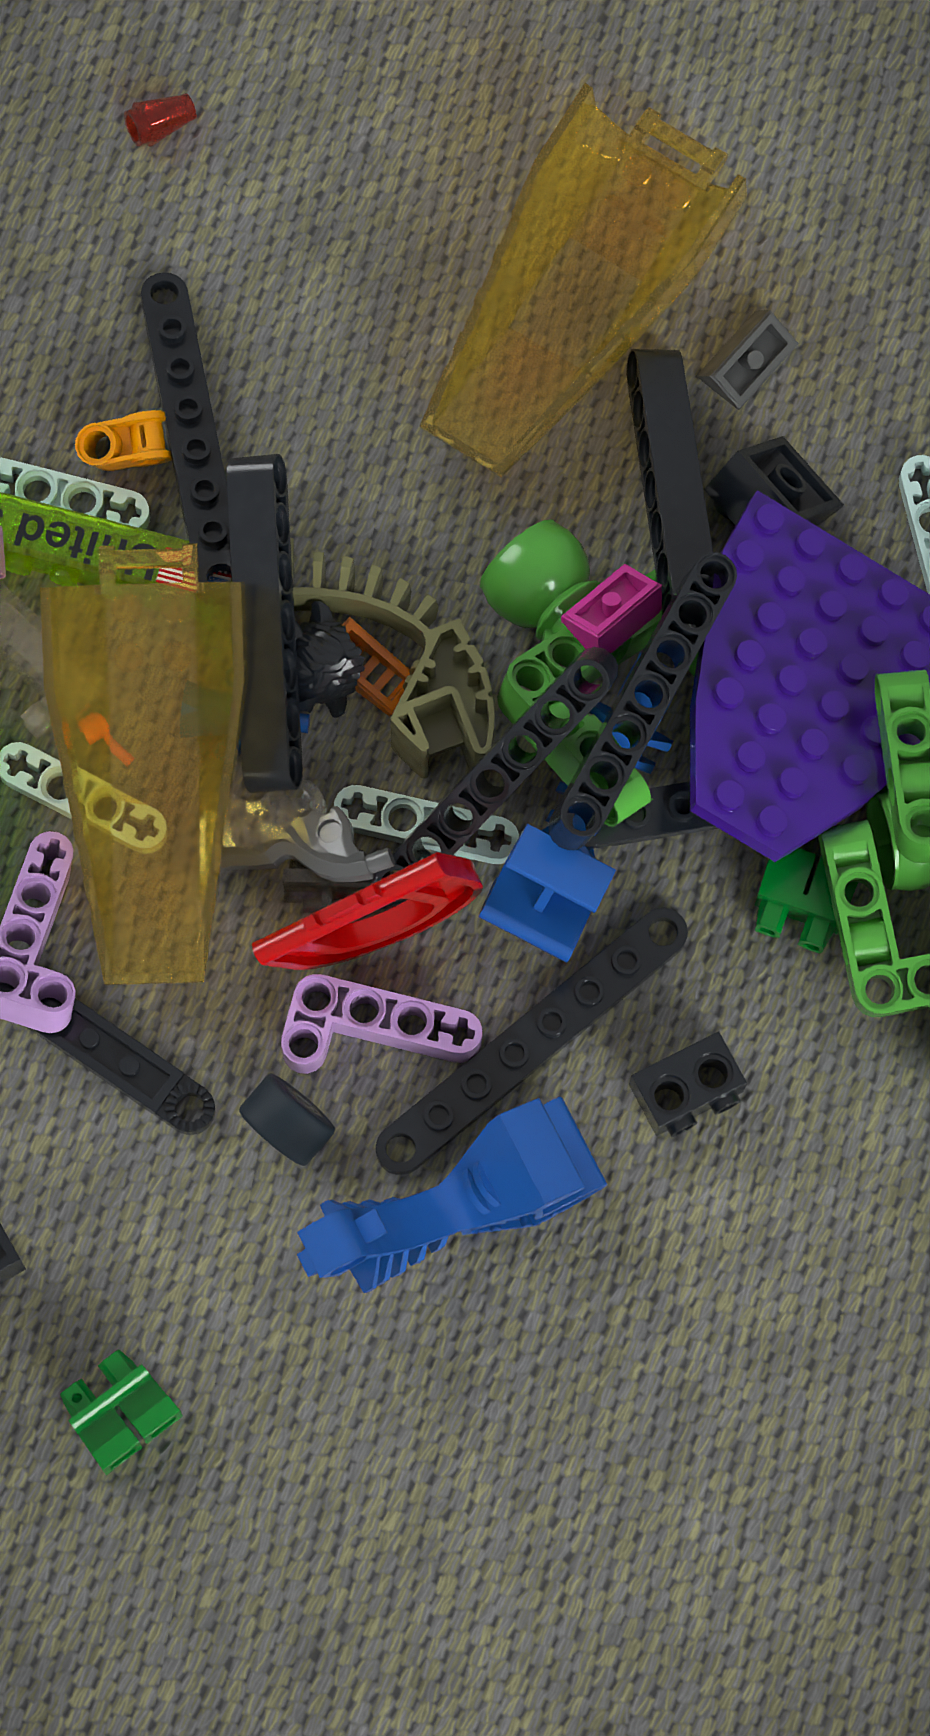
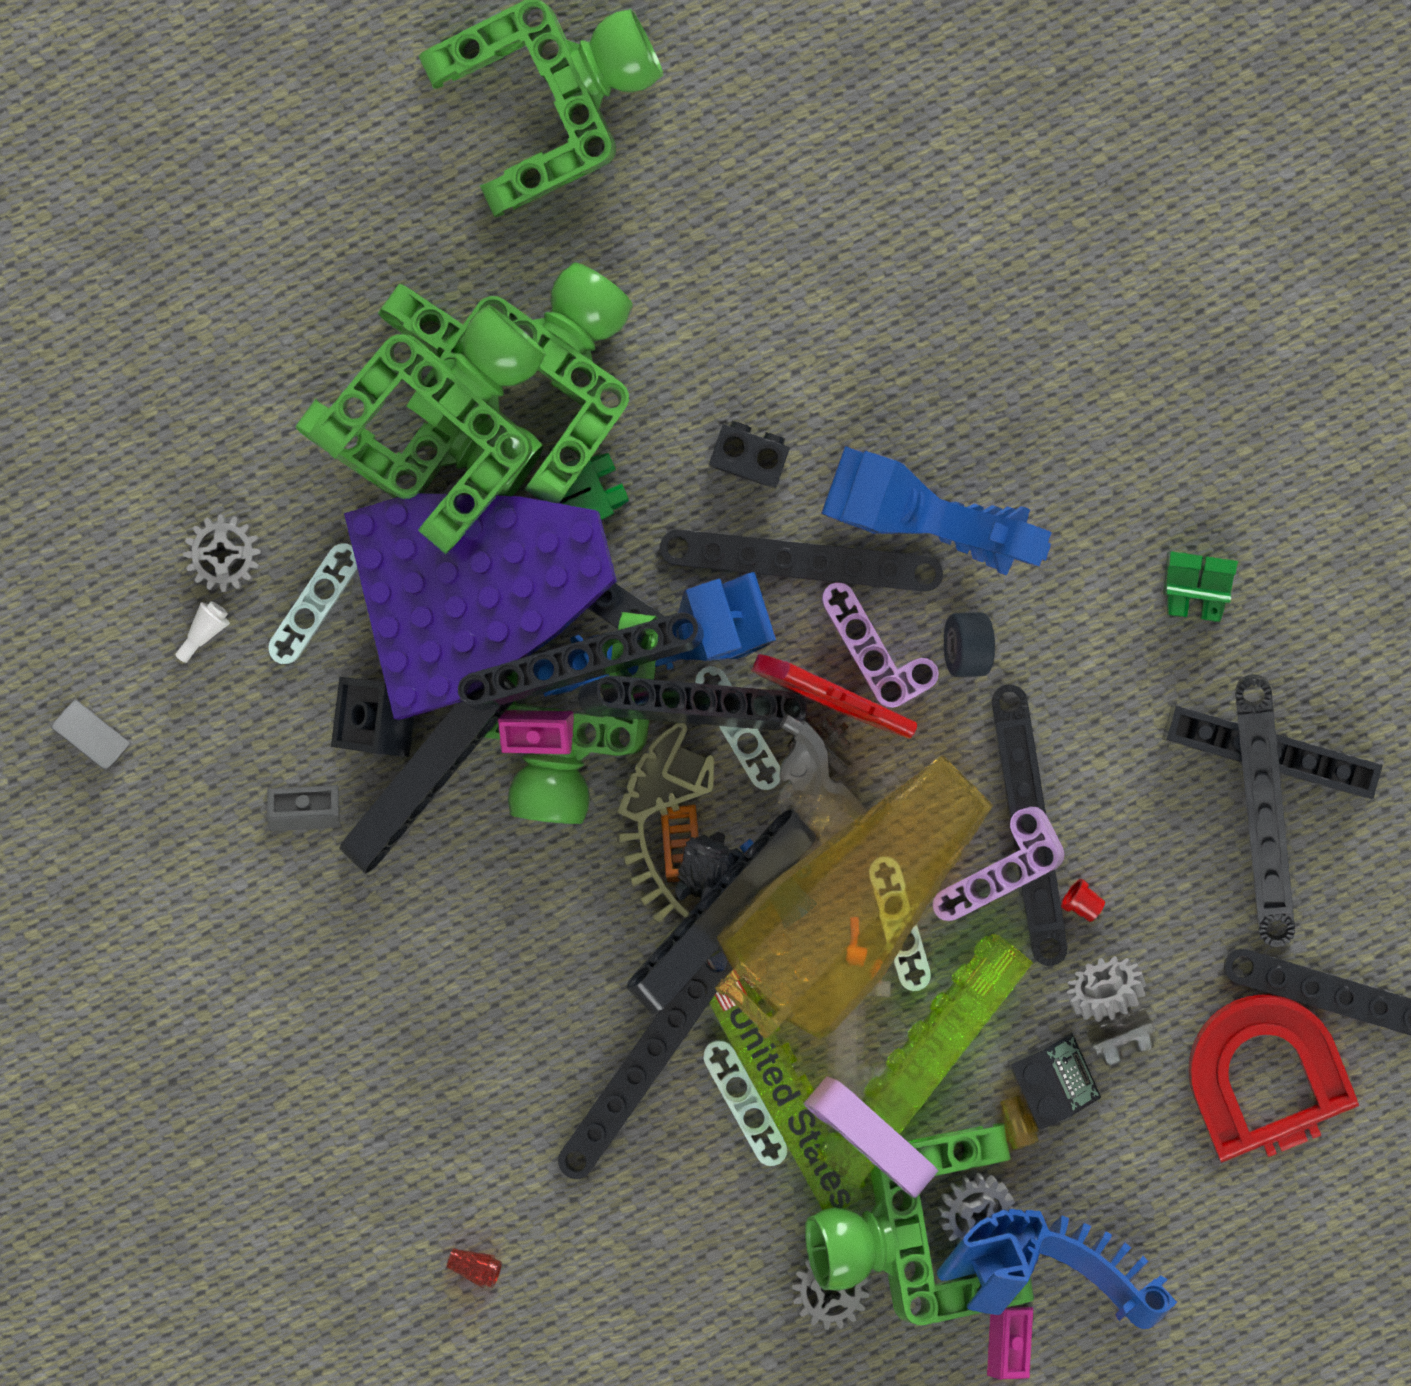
camera: 130 degrees left, 15 degrees up
(134, 441) = (680, 1089): light orange piece -> none
(579, 276) = (341, 939): clear yellow windscreen -> none

